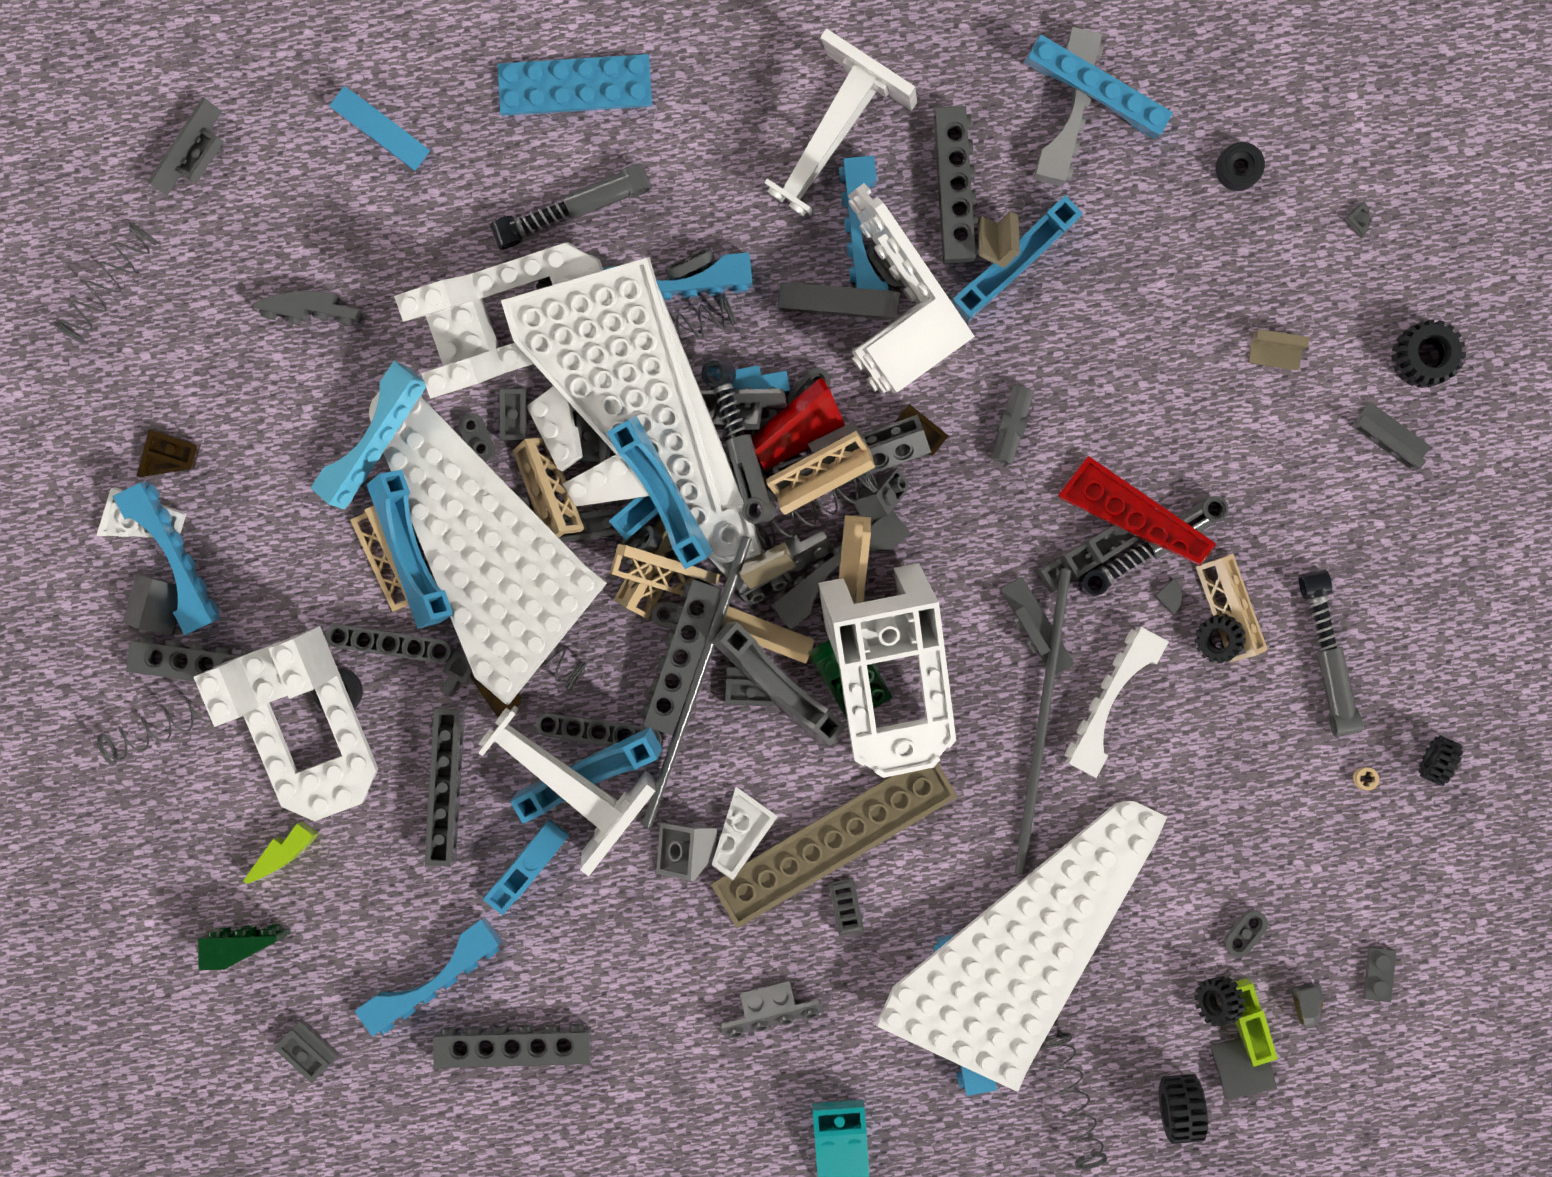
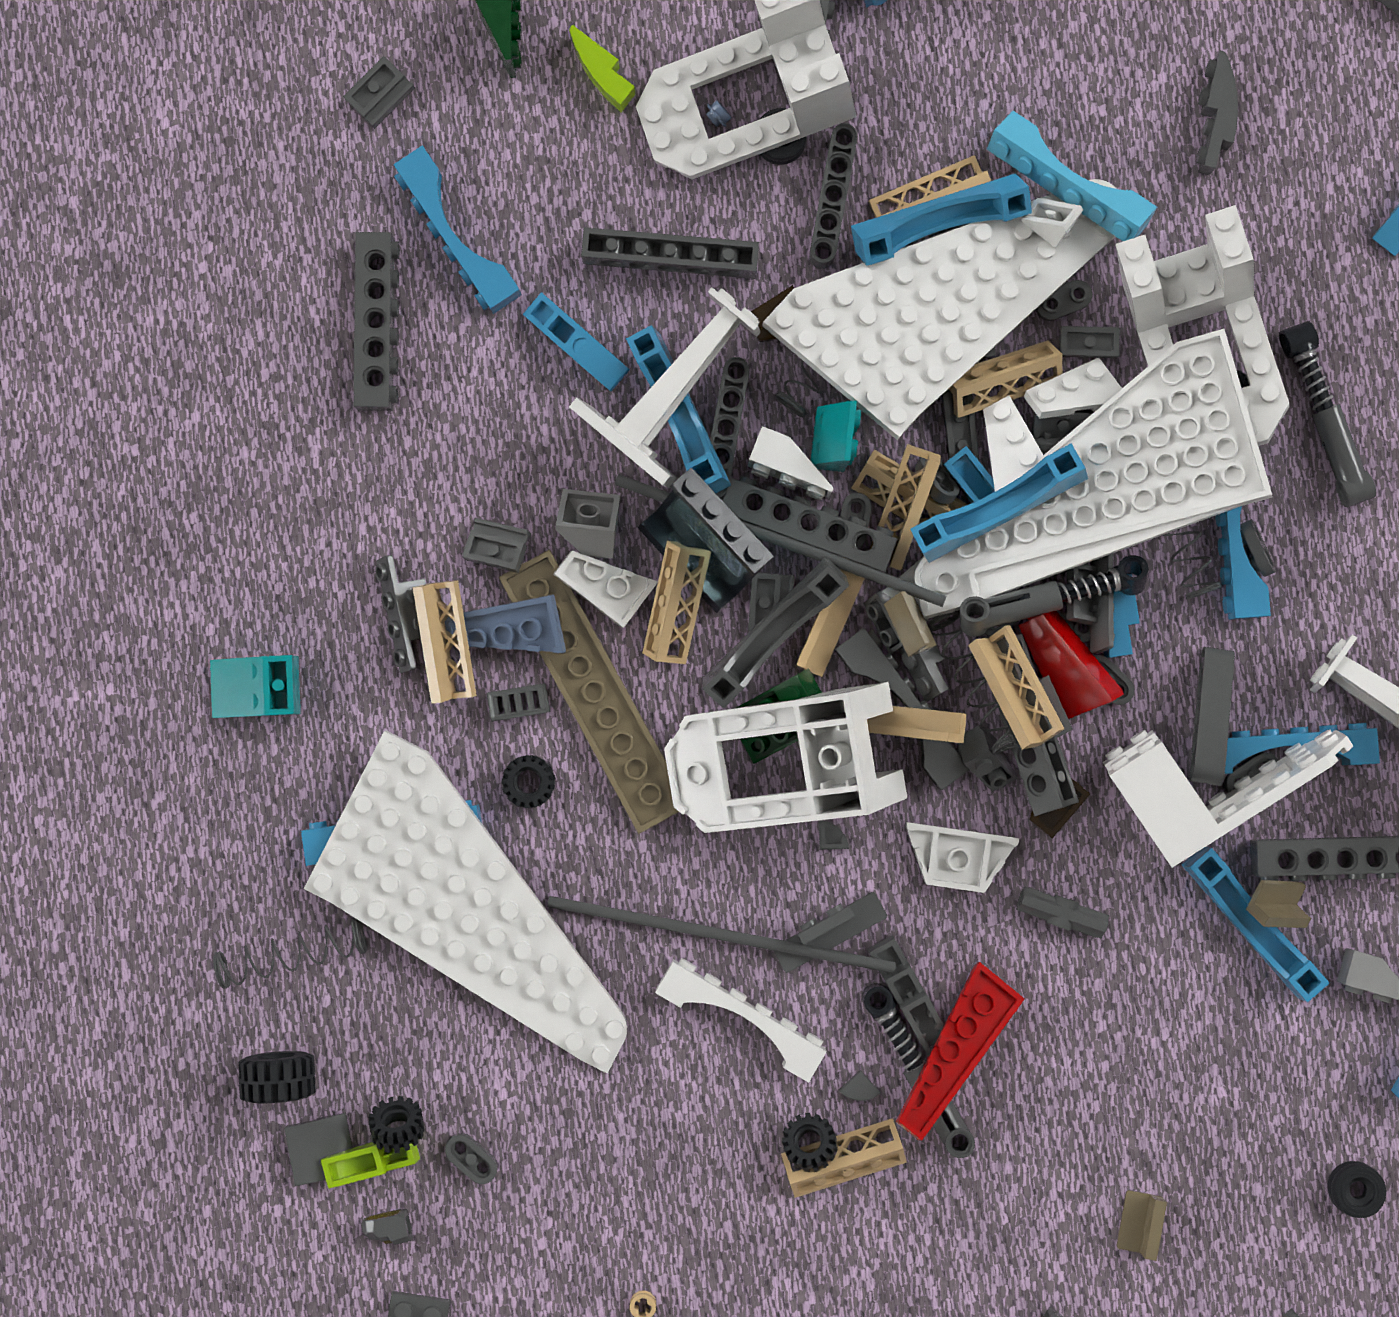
camera: 90 degrees right, 0 degrees up
(319, 747) = (718, 114): none -> sand blue plate
(407, 452) = (1052, 219): none -> white slope
(458, 671) = (799, 271): dark grey plate -> none
(604, 638) = (833, 436): none -> teal slope
(625, 681) = (783, 459): none -> white slope
(700, 748) = (703, 521): none -> black panel
(708, 931) = (496, 545): none -> dark grey plate
(753, 779) = (667, 603): none -> tan fence
(778, 907) = (515, 625): none -> sand blue wing
(795, 980) = (438, 641): none -> tan fence
(922, 909) = (511, 787): none -> black tyre
(954, 626) = (831, 836): none -> dark grey tile
(967, 515) = (959, 856): none -> white wing
(1343, 715) = (716, 1282): piece -> none

